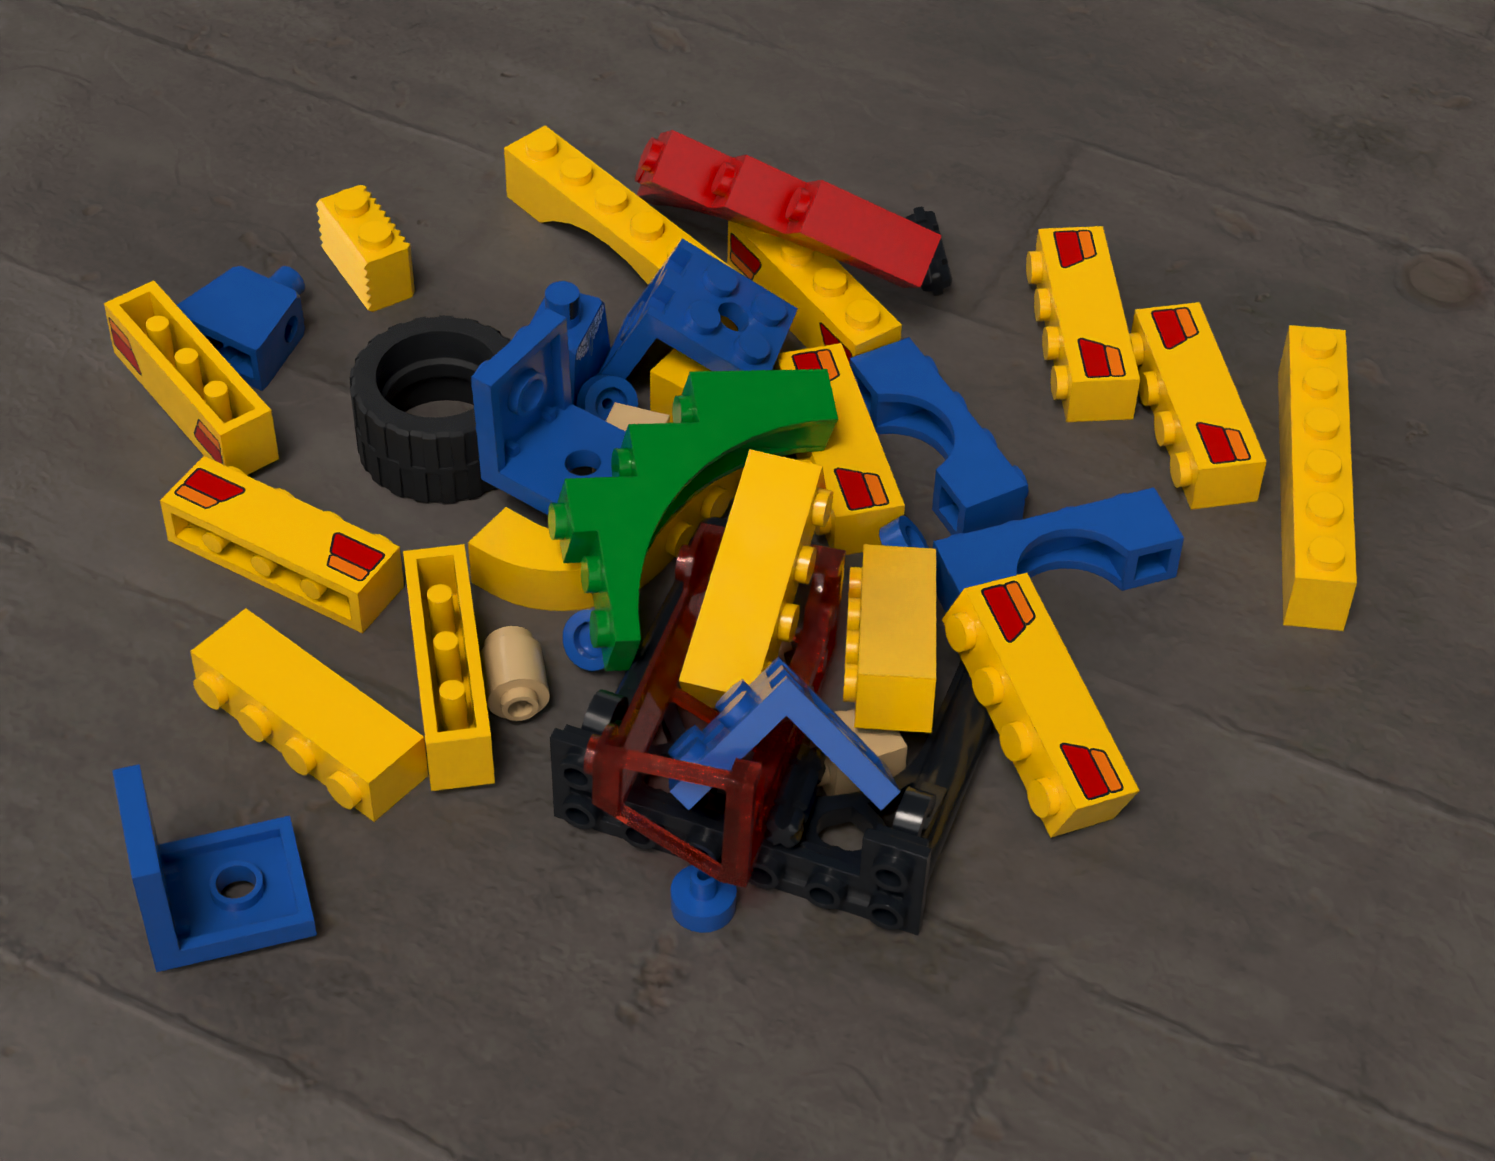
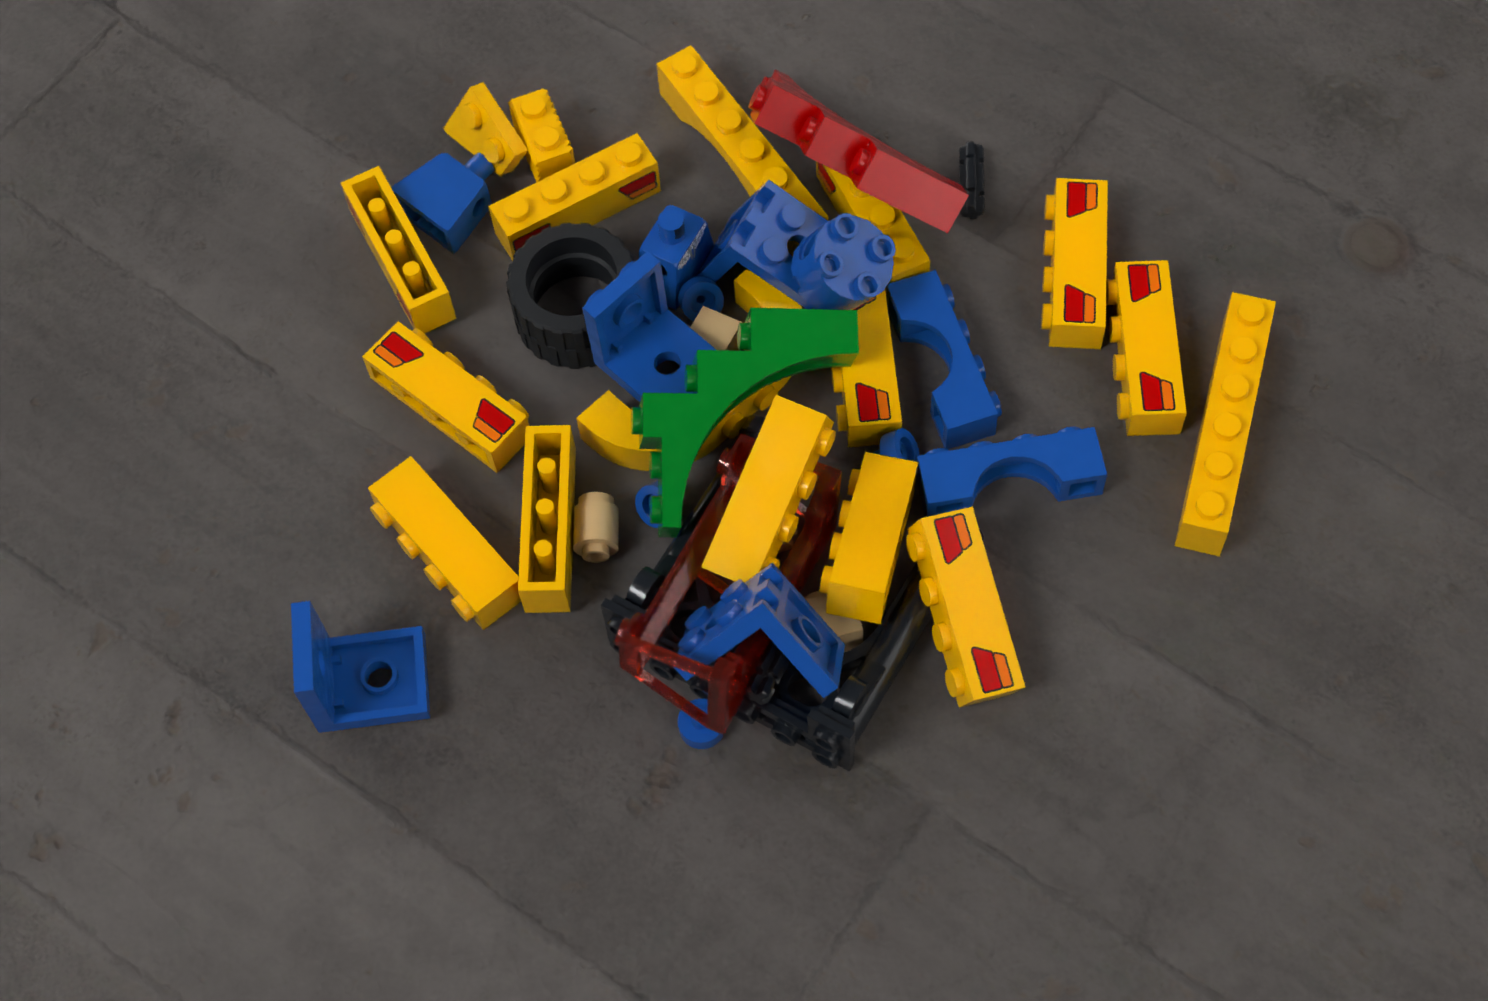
camera: 15 degrees right, 15 degrees up
(291, 234) = (485, 129): none -> yellow wing
(464, 279) = (578, 193): none -> yellow brick
(797, 318) = (843, 263): none -> blue brick

